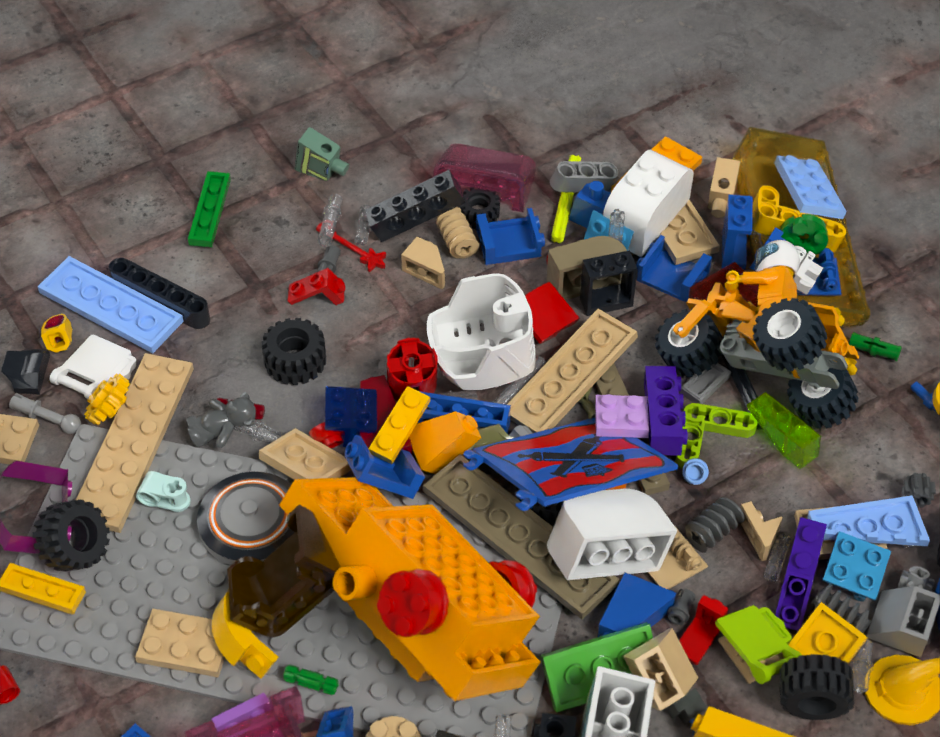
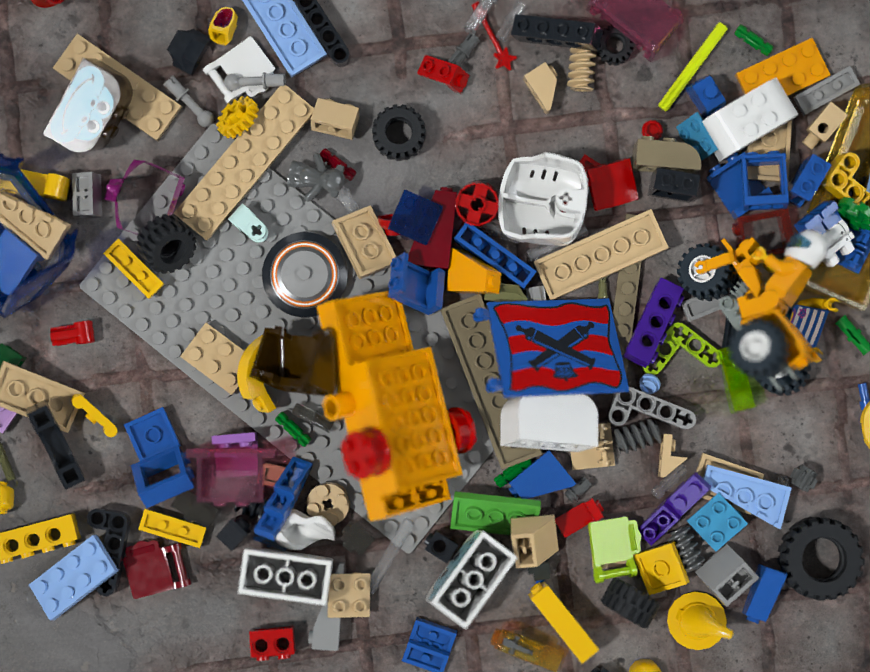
camera: 20 degrees right, 35 degrees up
(89, 375) = (233, 81): none -> light grey pin
(217, 364) = (335, 118): none -> tan brick
(328, 655) = (312, 417): none -> clear smoke axle
(399, 425) = (444, 251): yellow plate -> none
(510, 238) = (624, 90): blue panel -> none
(574, 175) = (724, 58): light grey beam -> none
(592, 624) = (511, 472): none -> green axle
(612, 157) = (753, 40): none -> green axle
(616, 224) = (702, 146): clear axle -> none
(621, 416) = (617, 315): lavender plate -> none
(703, 260) = (765, 202): none -> blue window
(705, 166) = (826, 90): none -> light grey plate
(742, 489) = (653, 411): none -> light grey beam
(862, 667) = (674, 597): clear axle -> none
(916, 577) = (753, 552): light grey gear -> none

